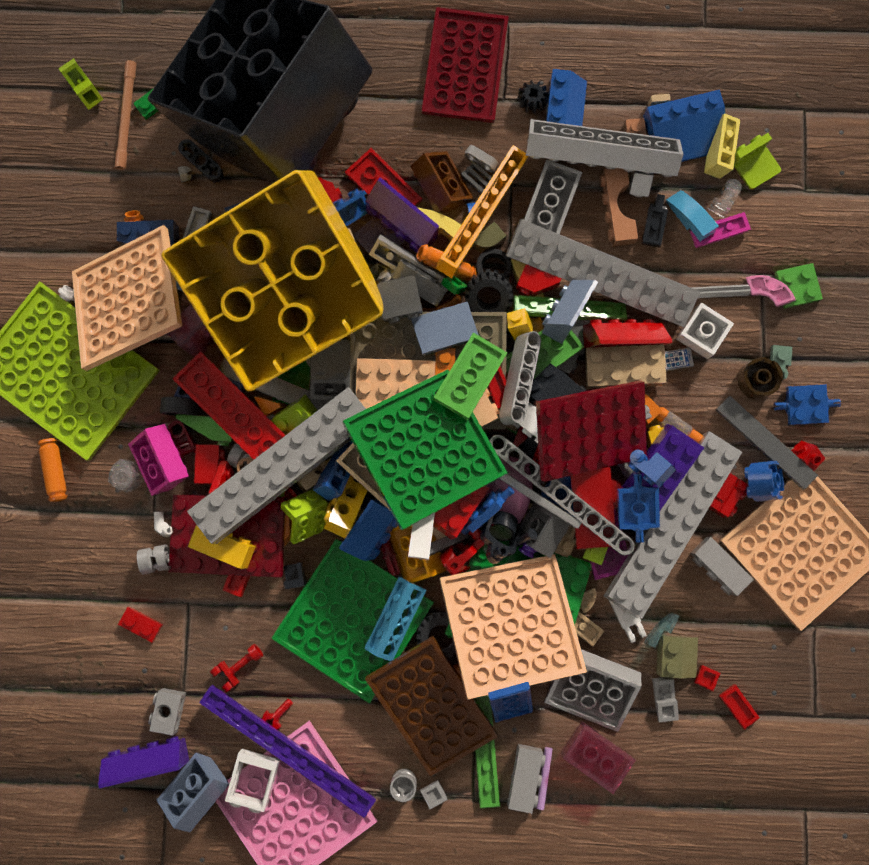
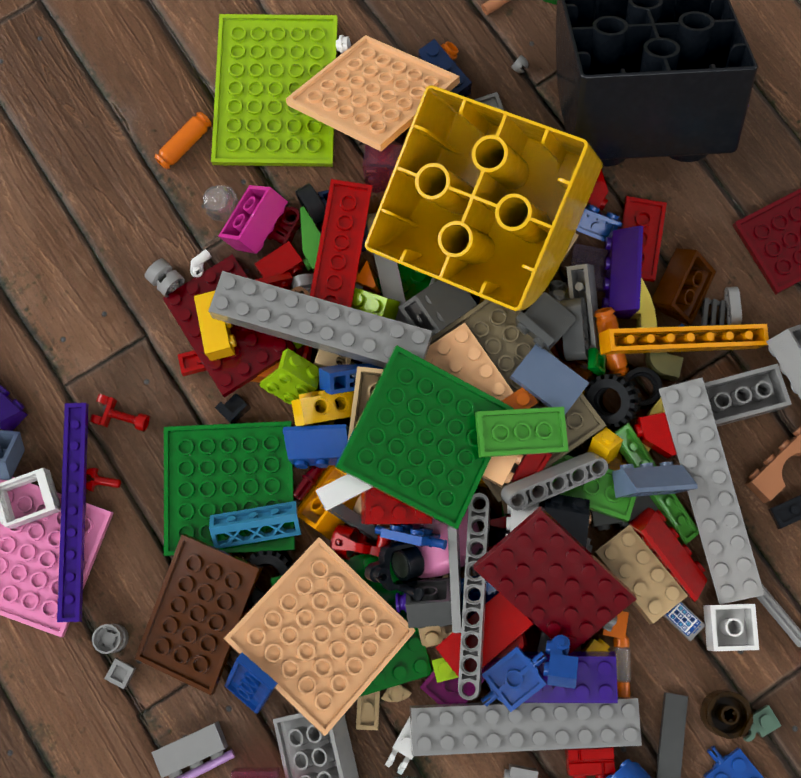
camera: 55 degrees right, 5 degrees down
(140, 624) = (100, 307): red plate -> none
(174, 701) = (52, 382): light grey brick -> none
(200, 153) = (536, 77): black beam -> none
(486, 764) = (178, 706): bright green tile -> none

